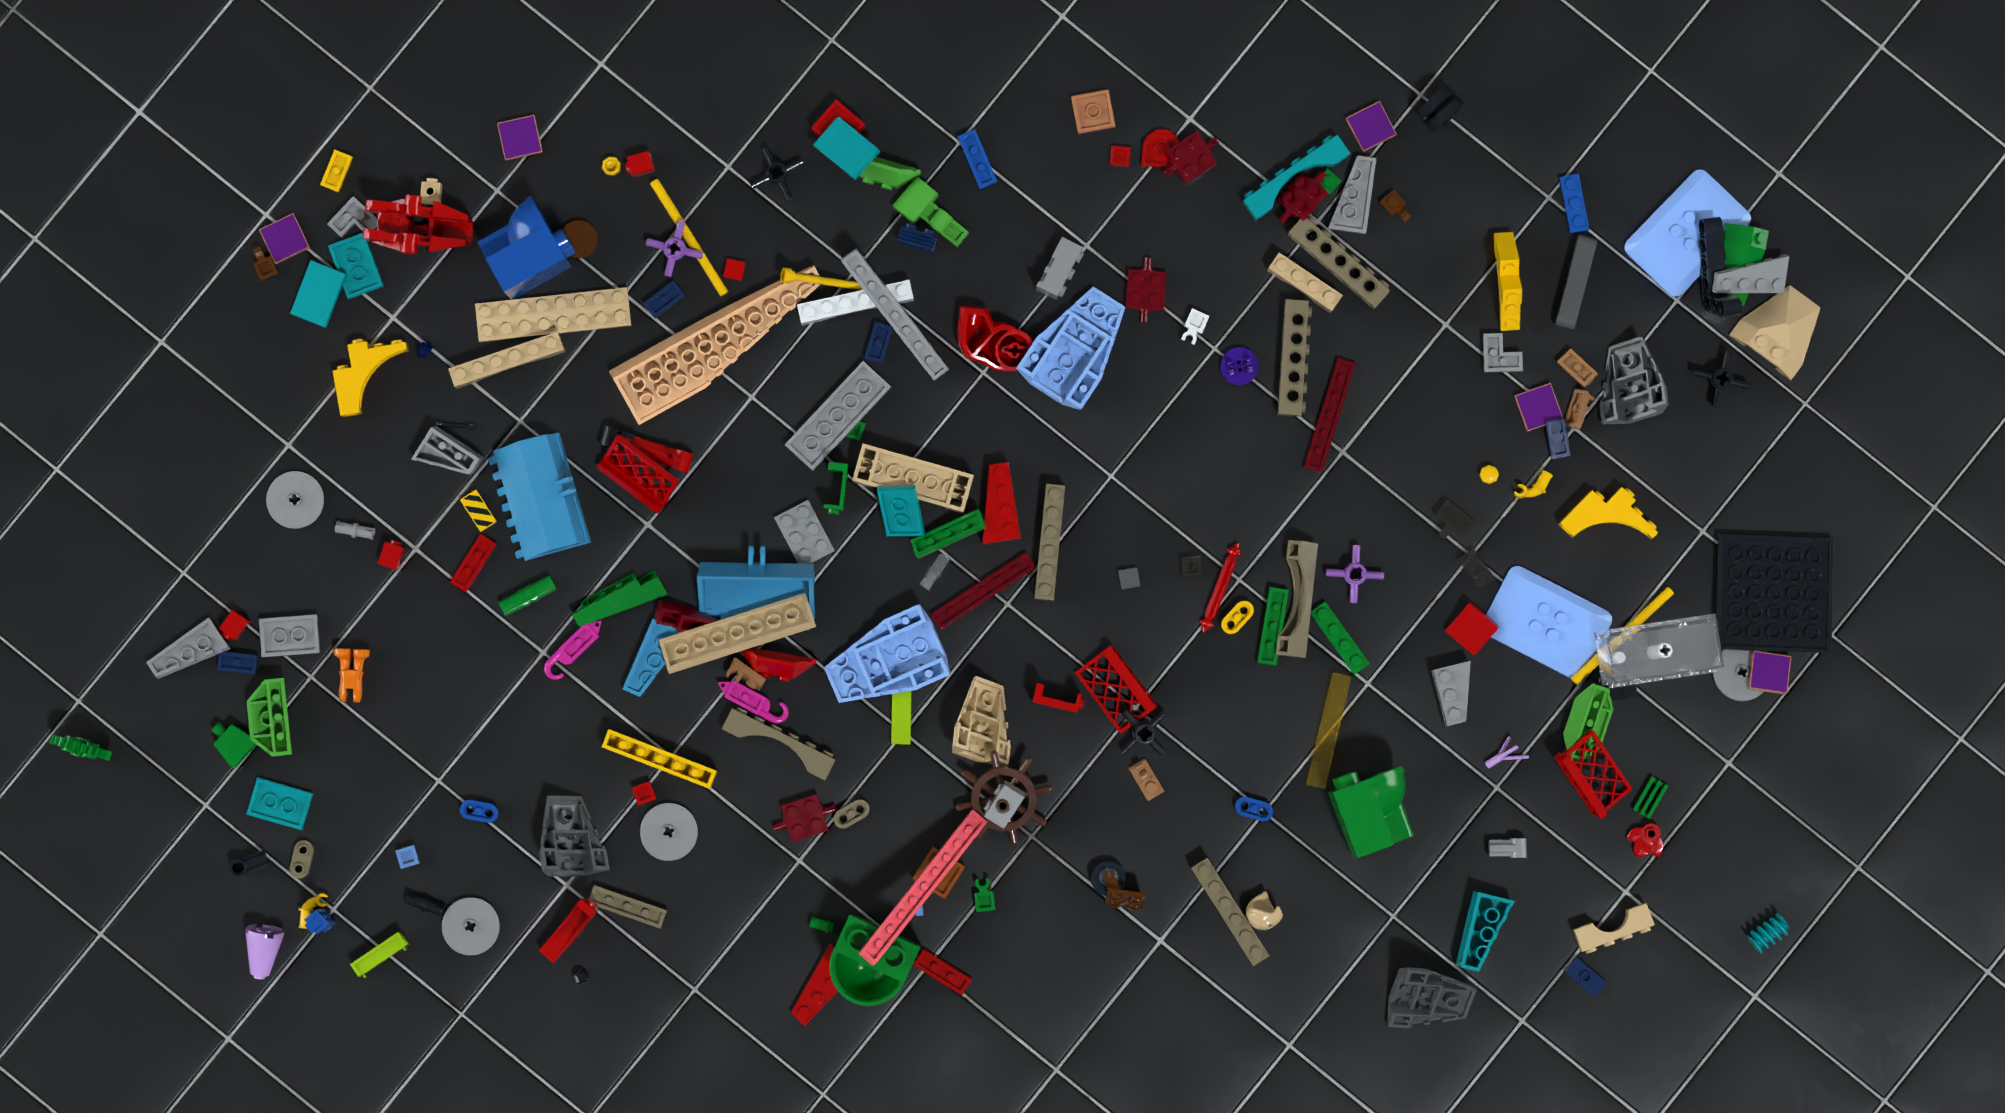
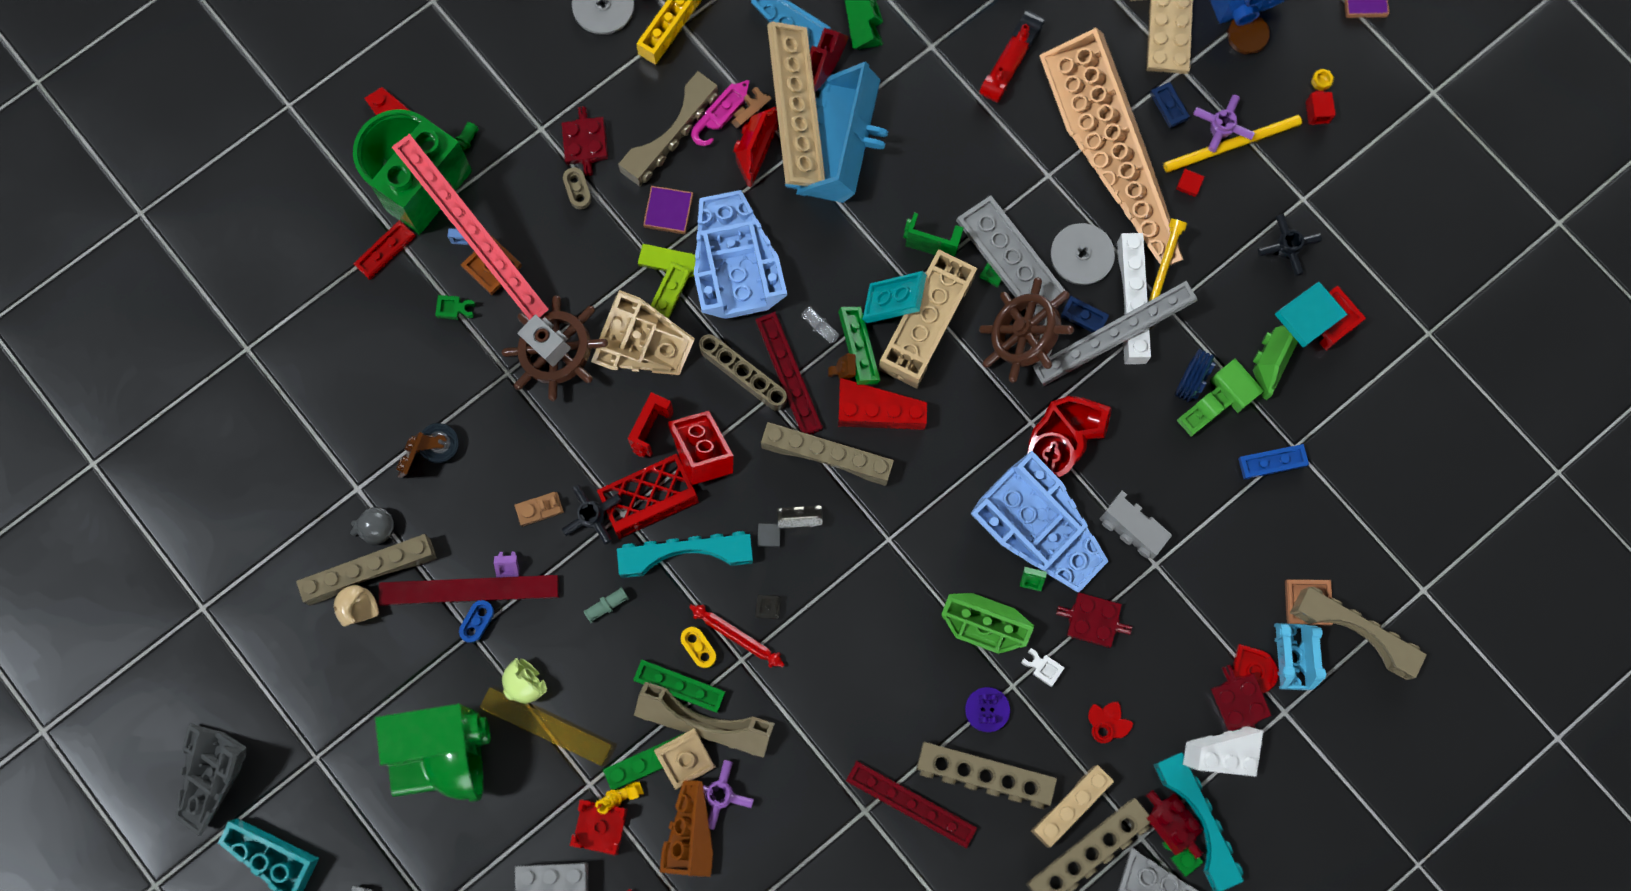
camera: 100 degrees right, 10 degrees down
(632, 480) = (986, 38): red fence -> none
(804, 533) = (889, 199): light grey plate -> none
(815, 340) = (1089, 268): none -> light grey piece
(854, 728) = (668, 210): none -> dark purple tile
(910, 383) = (1034, 333): none -> reddish brown brick
(932, 710) = (670, 289): none -> lime tile
(972, 541) = (845, 367): none -> reddish brown plate
(992, 620) = (738, 363): none -> dark tan beam
(1065, 651) = (701, 447): none -> red slope
(1108, 555) = (799, 517): none -> clear smoke plate
(1120, 156) = (1253, 622): red tile -> none
(1122, 347) = (1033, 579): none -> green tile
(1125, 31) = (1398, 656): none -> dark tan arch
(1140, 107) = (1307, 652): none -> medium azure piece
(1149, 606) = (638, 560): none -> teal arch
(1167, 379) = (986, 622): none -> bright green wedge
(1191, 916) = (373, 526): none -> dark grey hat
(1202, 794) = (506, 565): none -> medium lavender tile
(1217, 703) = (606, 604): none -> sand green pin
(1225, 263) = (1110, 720): none -> red plate
(1228, 822) = (468, 590): none -> dark red tile
(1237, 162) = (1226, 753): none -> white wedge
(1298, 756) = (521, 682): none -> yellowish green cylinder
(1332, 608) = (684, 758): none -> tan tile
(1375, 659) = (615, 797): none -> yellow piece
(1397, 590) = (689, 842): none -> dark orange wedge
(1401, 666) = (599, 830): none -> red panel

